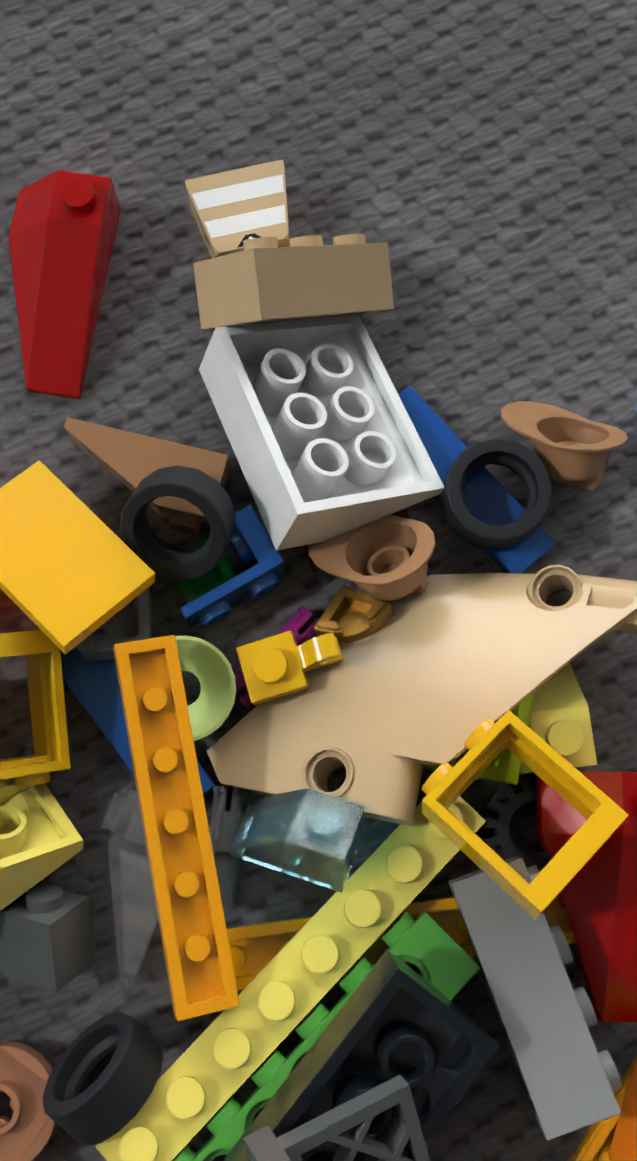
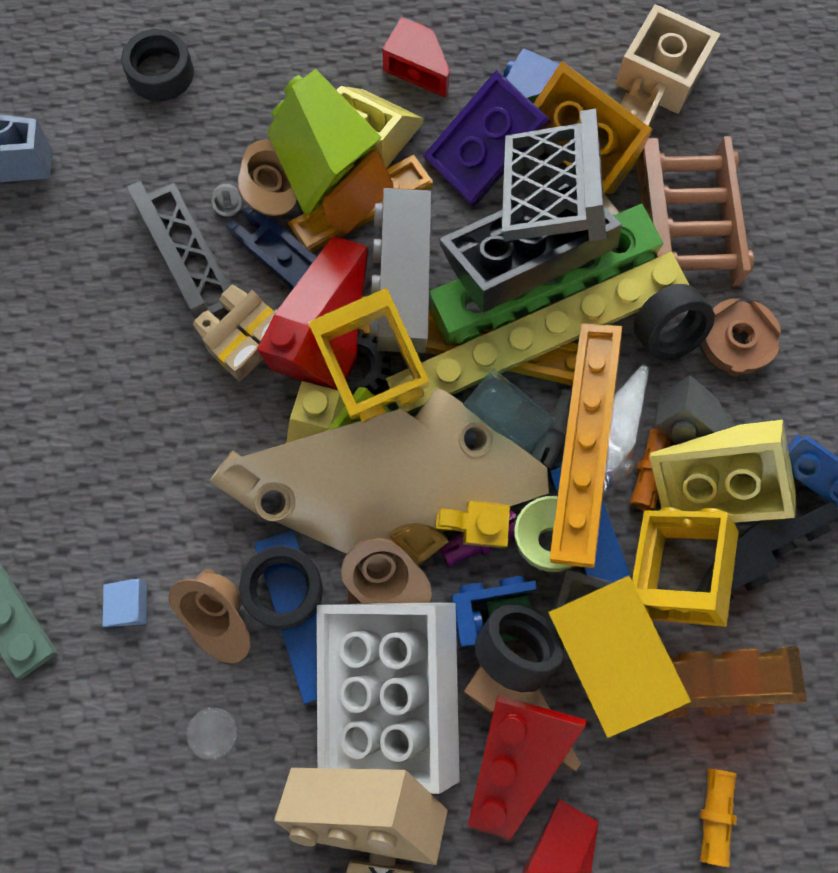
camera: 160 degrees left, 5 degrees down
(78, 804) = (645, 491): none -> orange pin
(134, 406) = (518, 762): none -> red wing
(497, 315) = (212, 733): none -> clear piece

